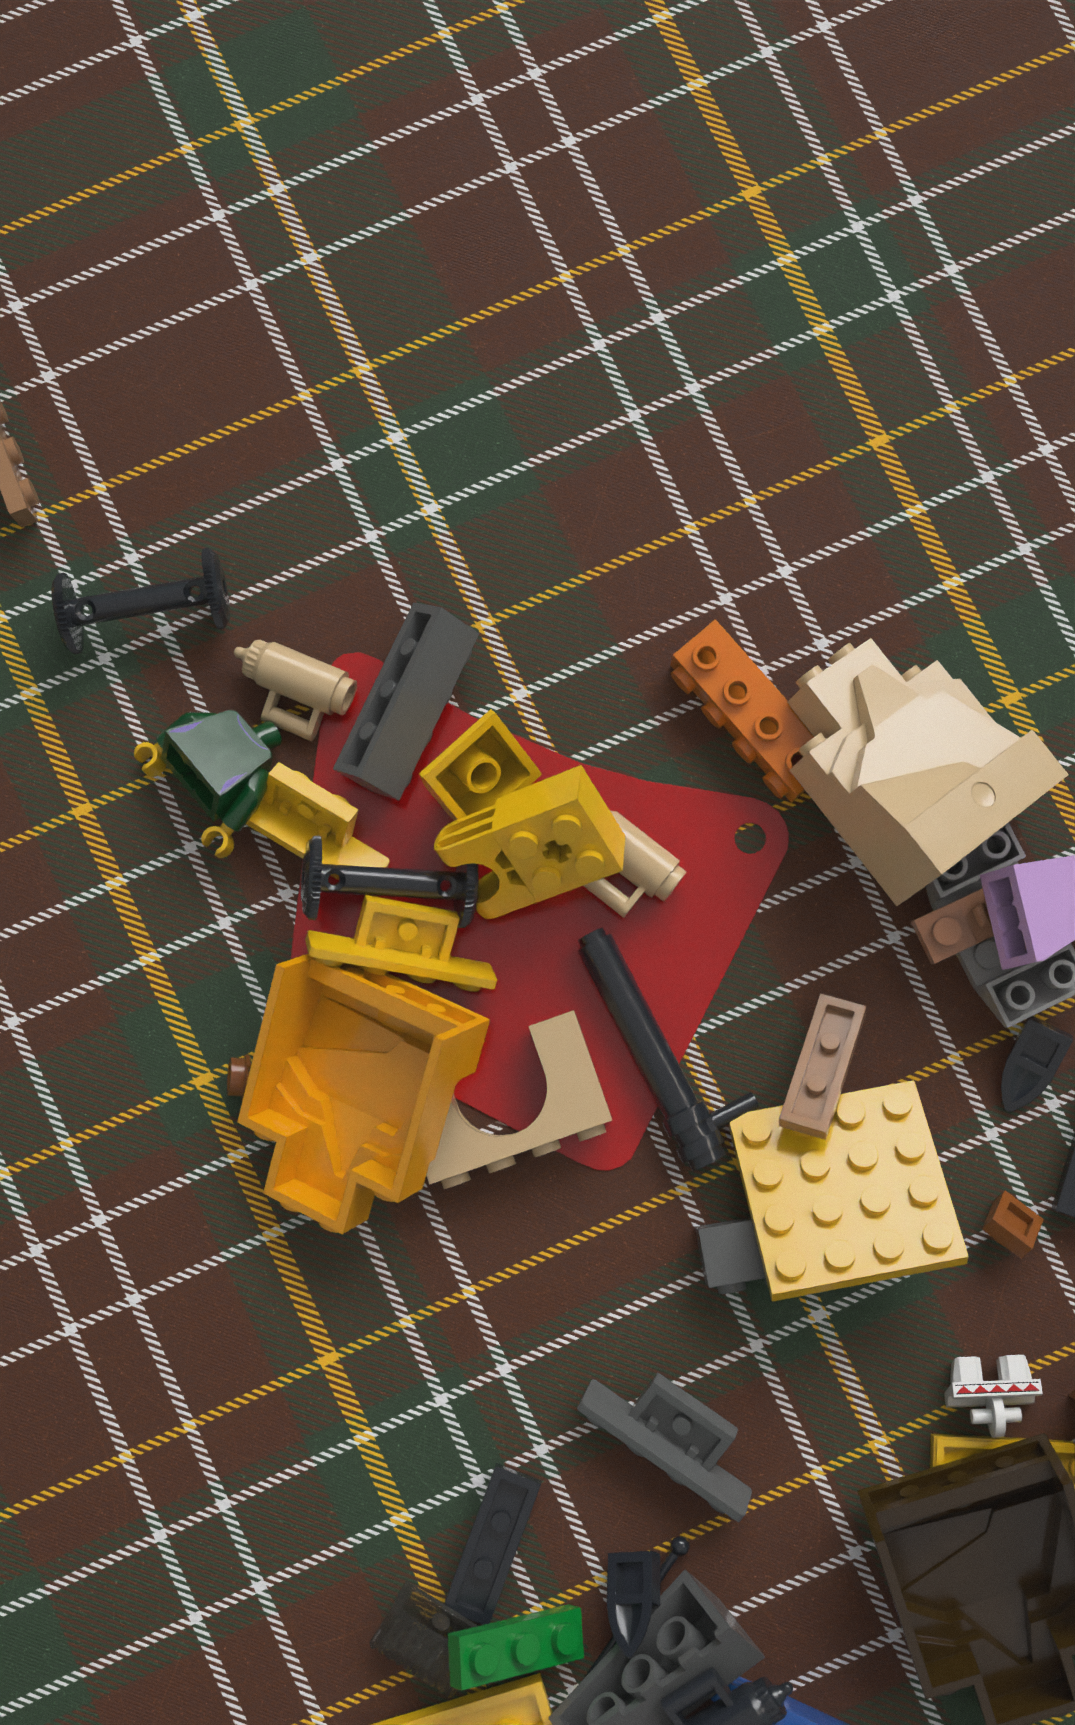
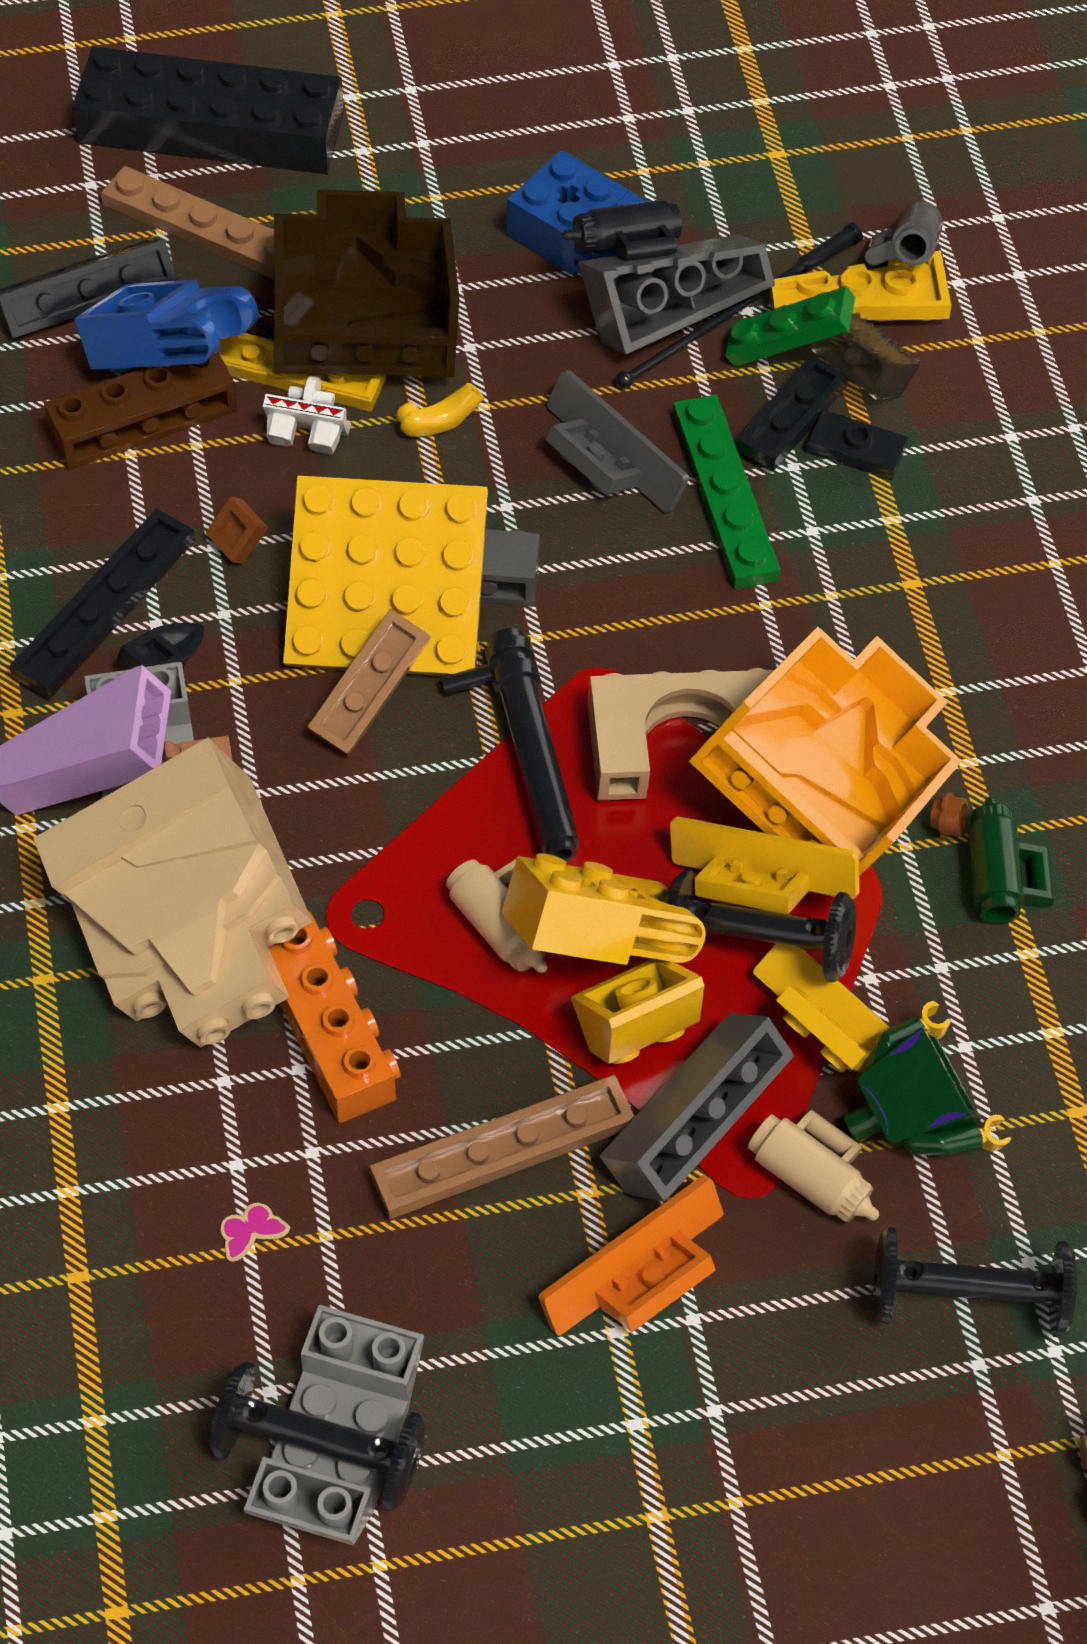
camera: 170 degrees left, 25 degrees down
(188, 1033) = (997, 866): none -> dark green piece
(415, 552) = (642, 1266): none -> orange bracket
(416, 1523) = (857, 444): none -> black plate
(540, 1424) = (726, 492): none -> green plate
(565, 632) = (501, 1146): none -> medium nougat plate
(627, 341) = (351, 1376): none -> light grey slope
(631, 1594) = (678, 345): black plate -> none
(641, 334) = (316, 1435): none -> black hose
(759, 514) = (243, 1229): none -> dark pink sticker
(855, 1436) = (440, 416): none -> yellow arm

